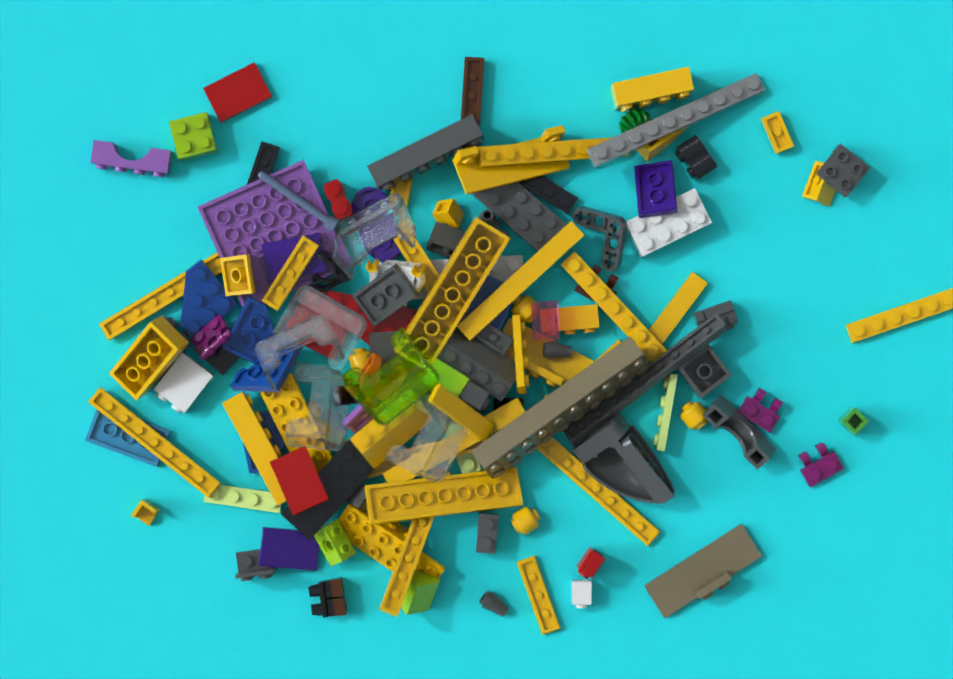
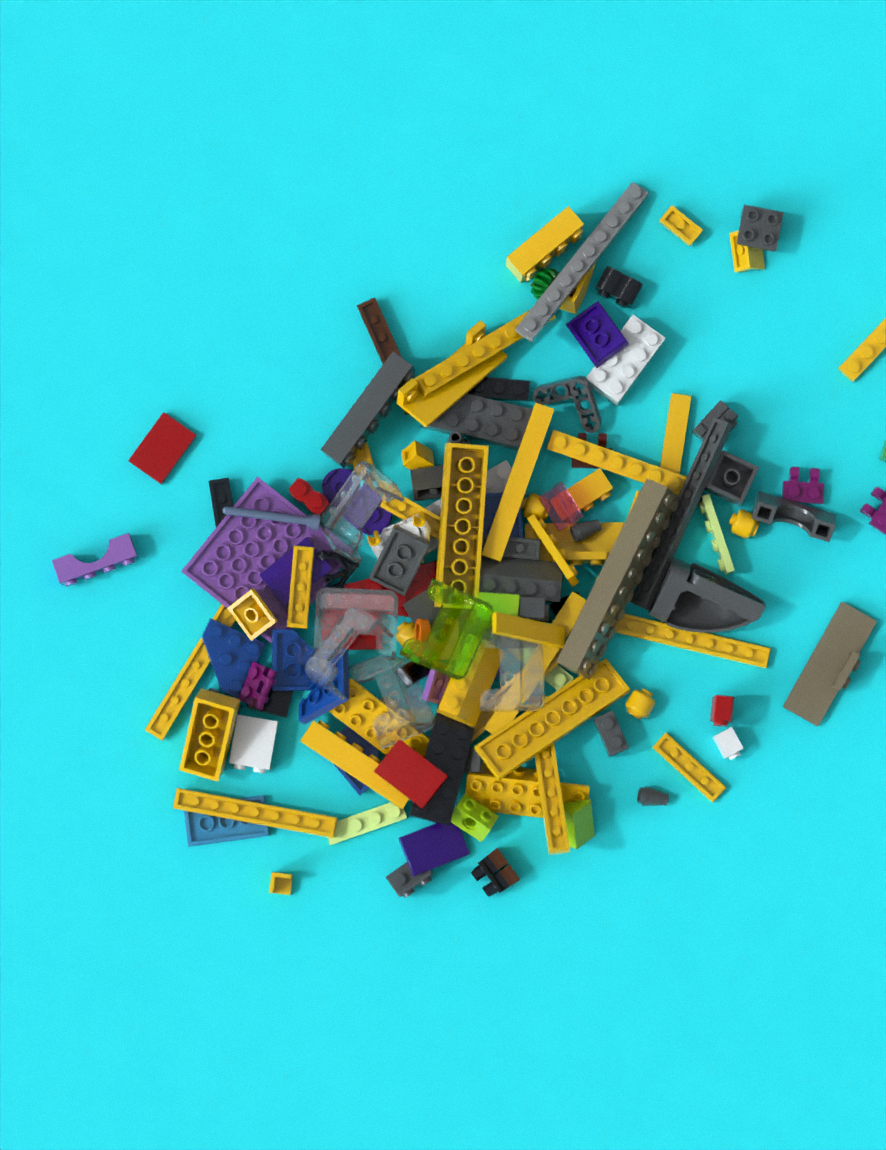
camera: 30 degrees left, 5 degrees down
(193, 136) = (143, 509): lime brick -> none

